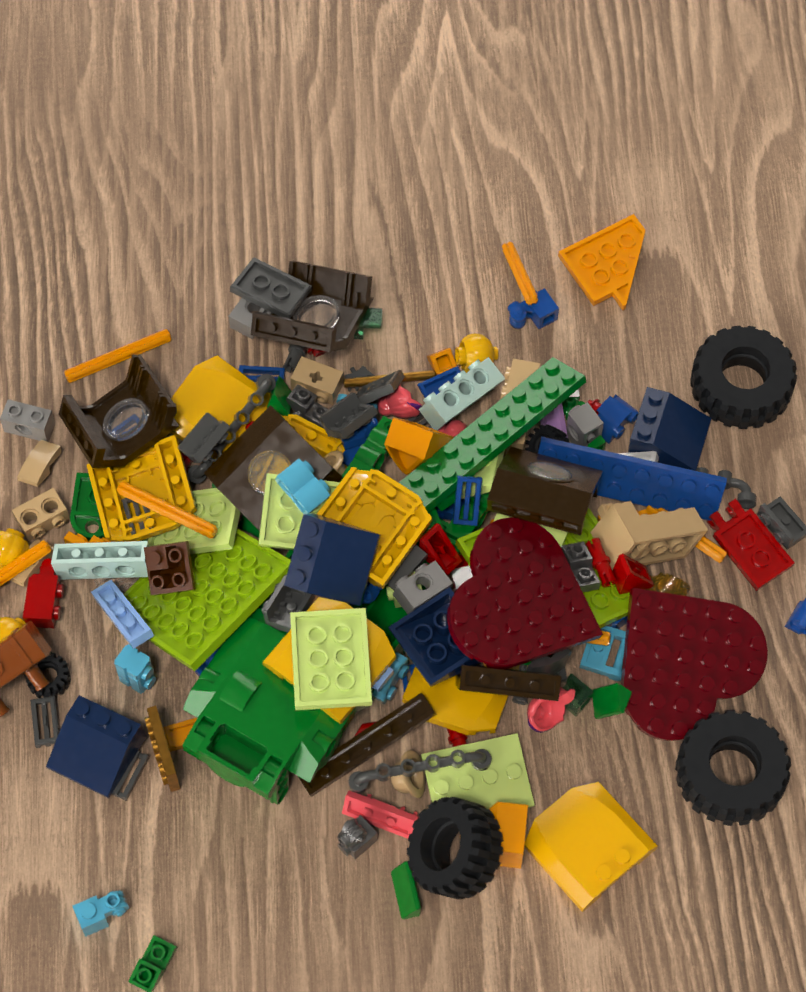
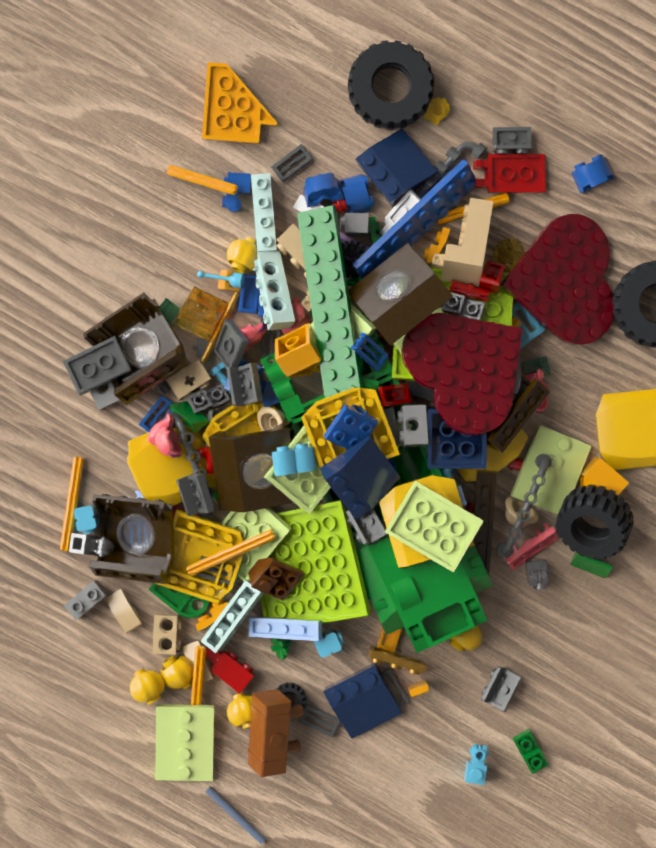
camera: 55 degrees left, 25 degrees up
(86, 388) = (90, 545): none -> flat silver brick
(101, 632) = (281, 647): none -> green plant
(110, 368) = (86, 519): none -> medium azure brick
(145, 790) = (418, 688): none -> light orange tile
(203, 882) = (501, 688): none -> bracket
(238, 807) = (467, 640): none -> yellow plant
(243, 380) = (165, 437): none -> coral hair
(377, 512) = (350, 426): none -> blue plate
(389, 350) = (201, 313): none -> clear yellow slope
(446, 359) = (235, 280): none -> medium azure hinge
(534, 341) = (263, 212): none -> light aqua brick
(597, 348) = (296, 169): none -> dark grey tile
(599, 382) = (322, 187): none -> blue cylinder
(610, 700) = (561, 350): green slope -> none
(754, 438) = (437, 110): none -> yellow animal

